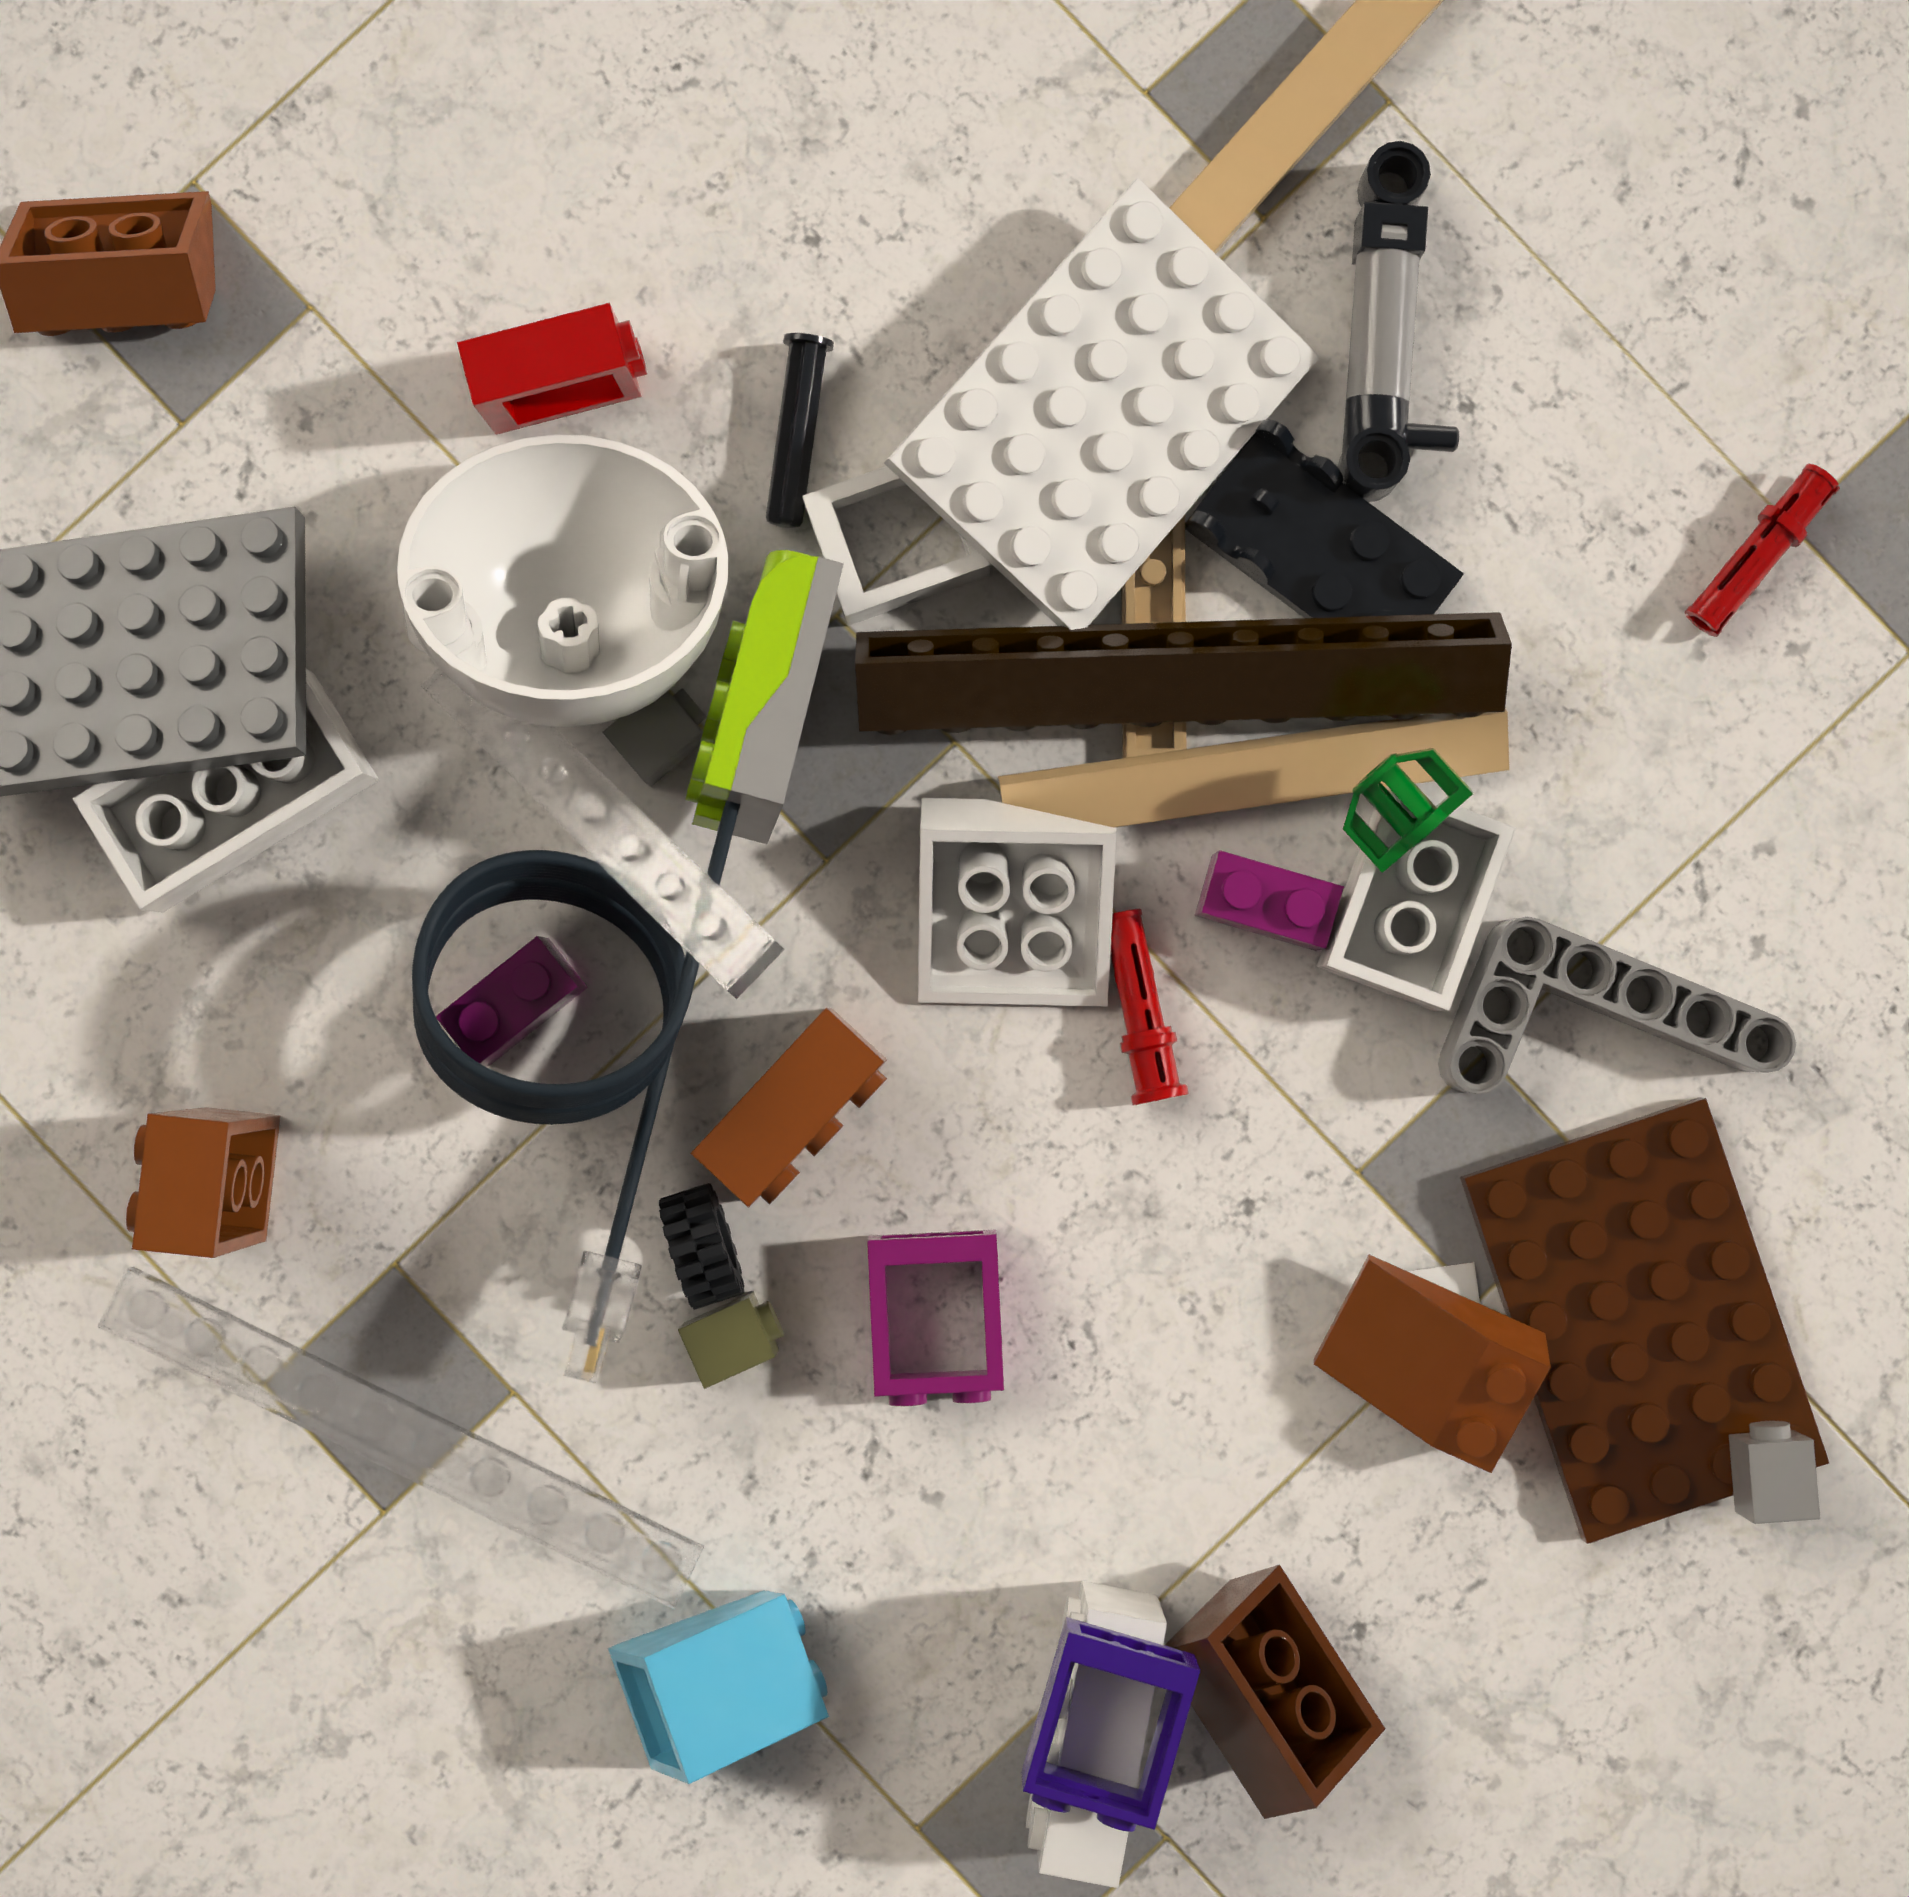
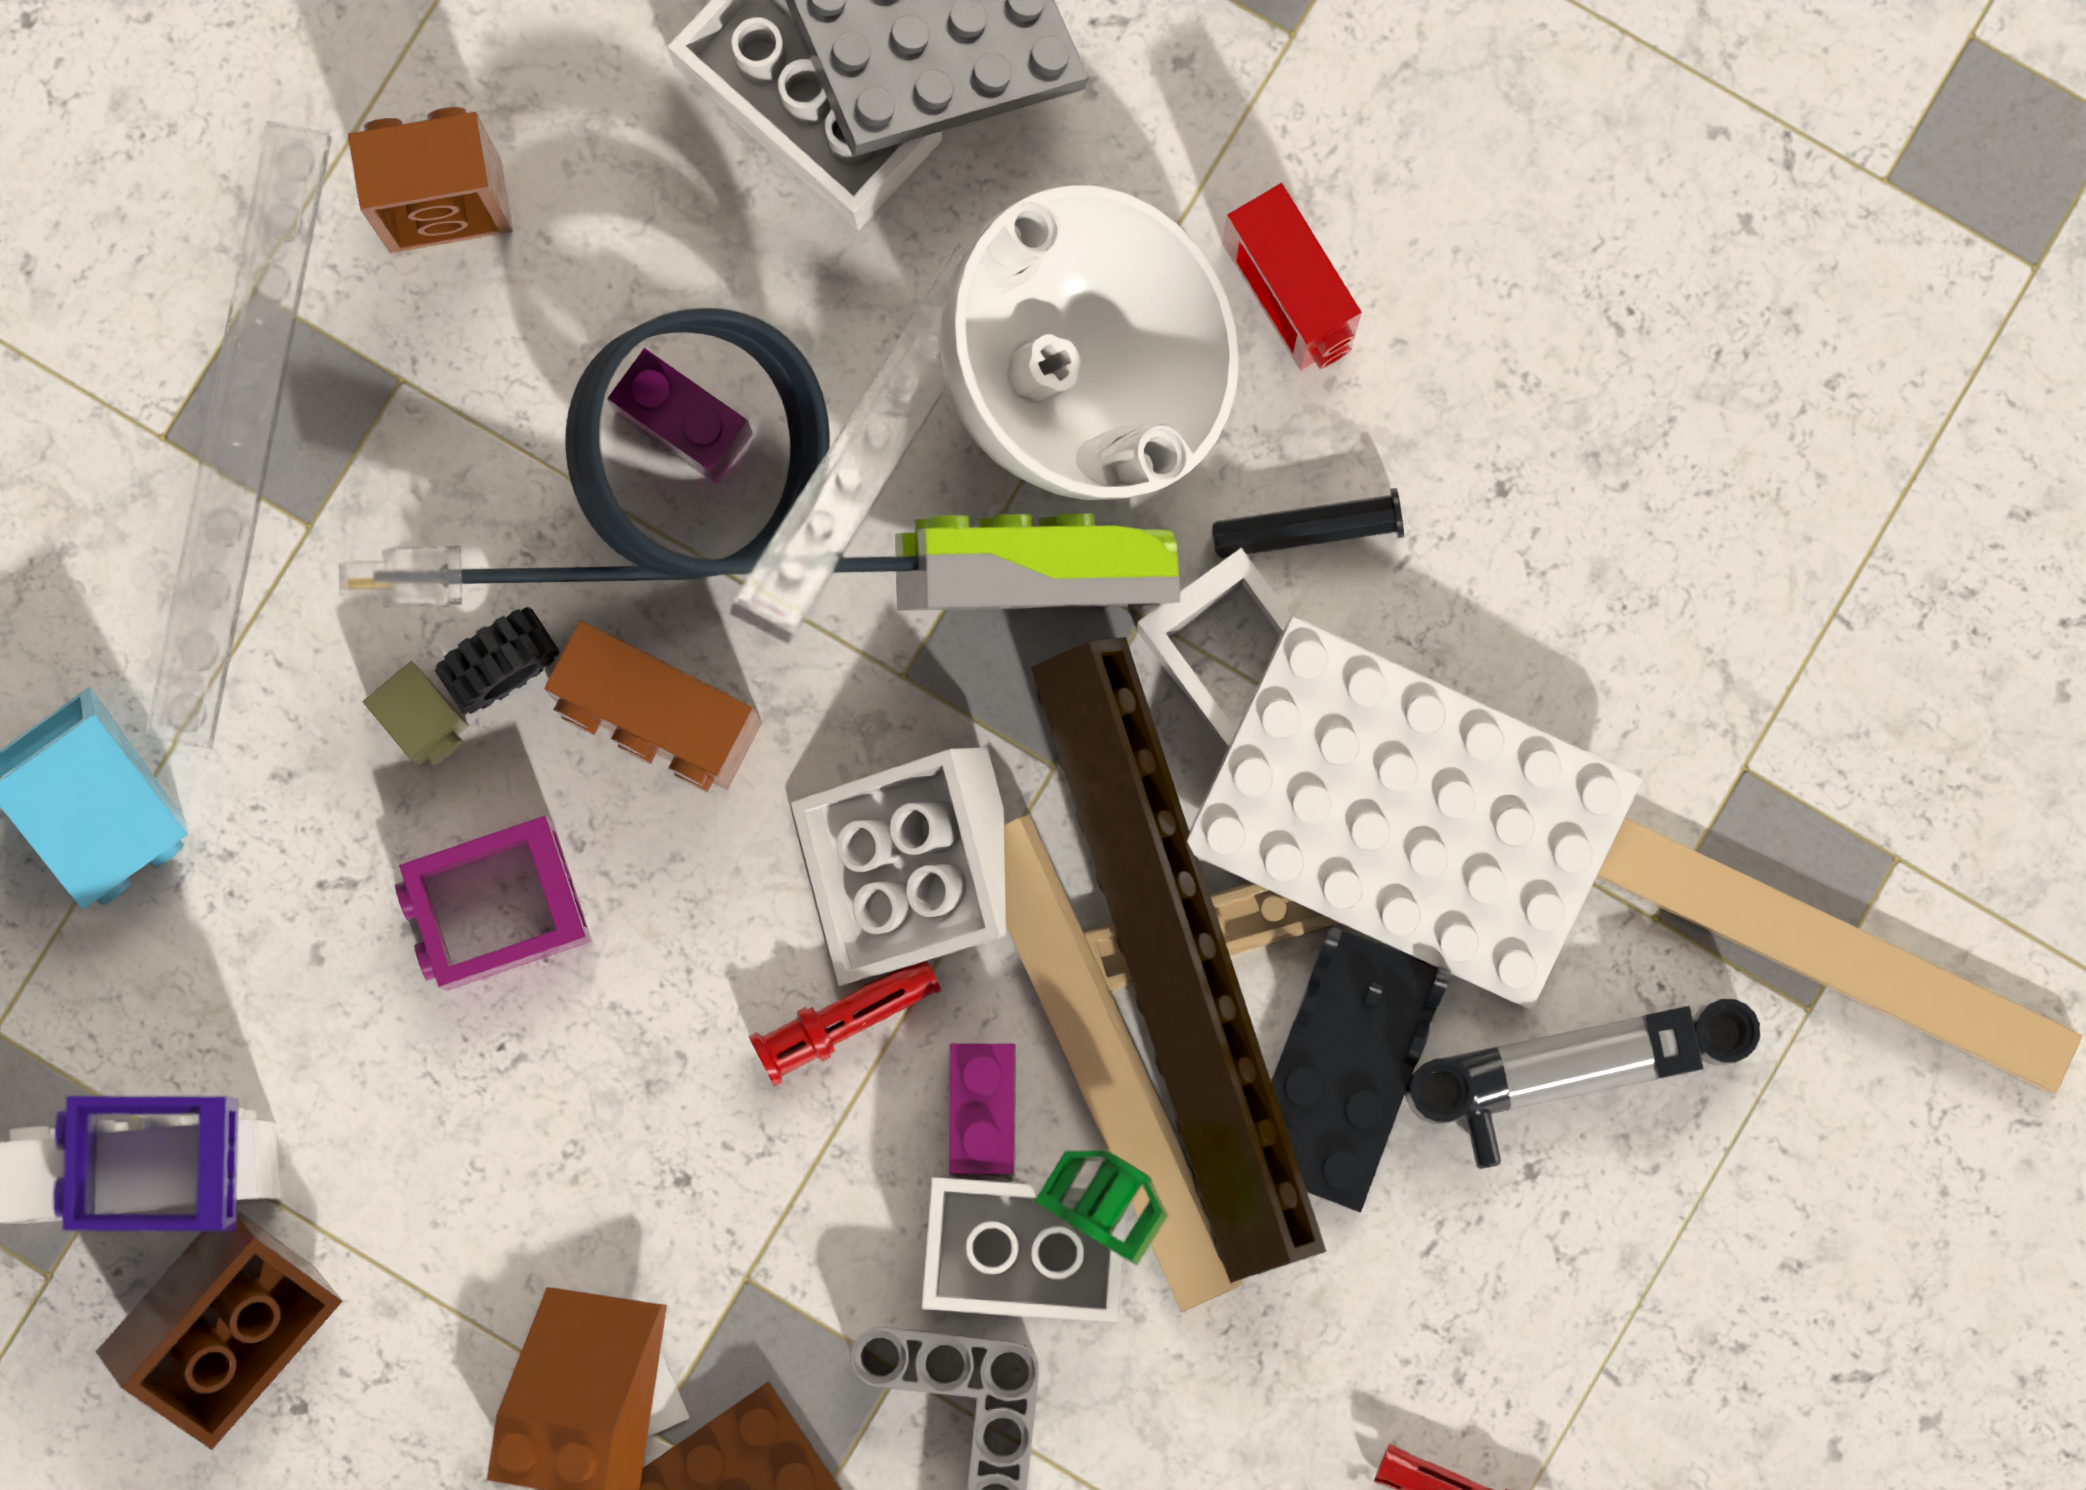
camera: 80 degrees right, 5 degrees down
(658, 735) = (972, 480): light grey brick -> none

